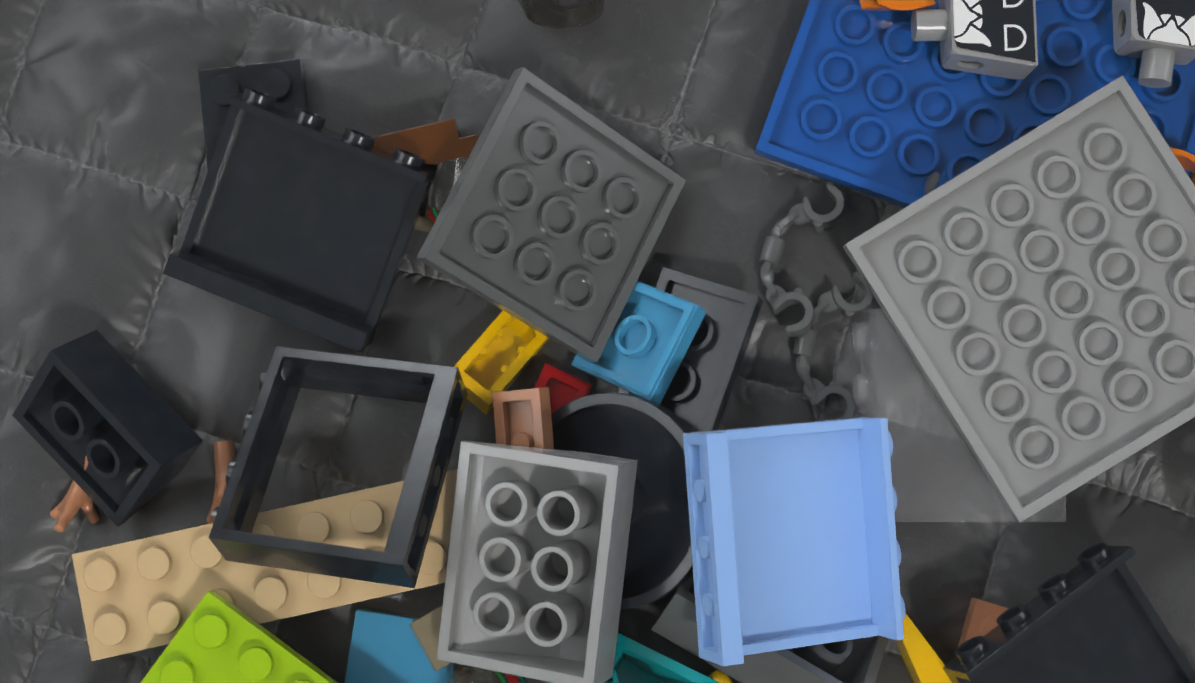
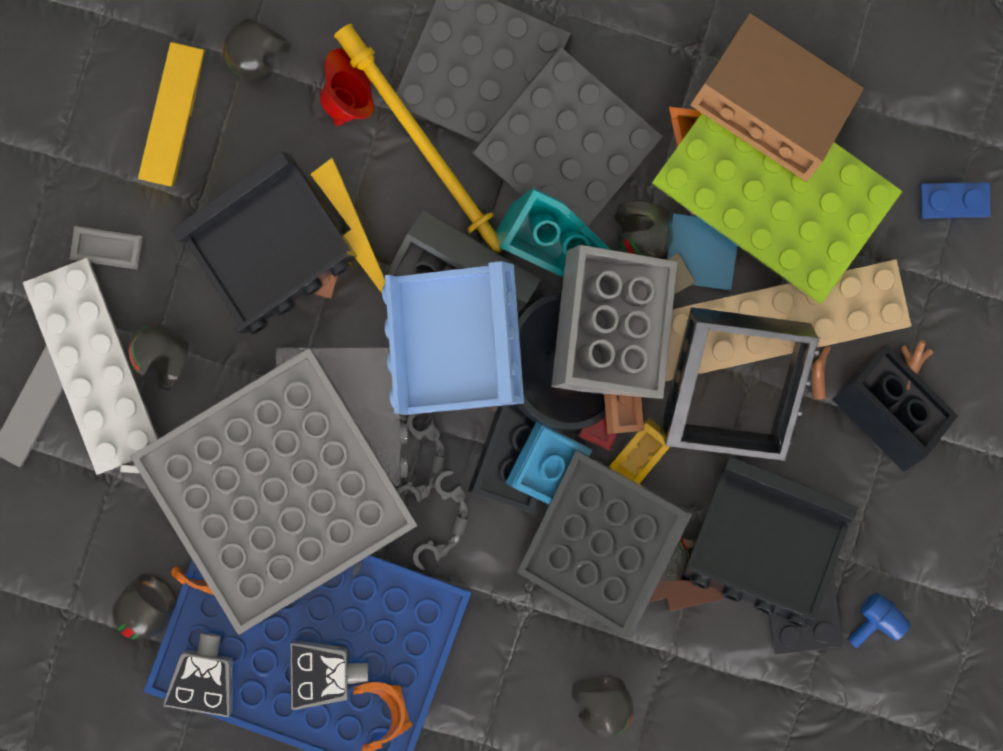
camera: 175 degrees right, 5 degrees up
(140, 116) = (881, 615): none -> blue piece

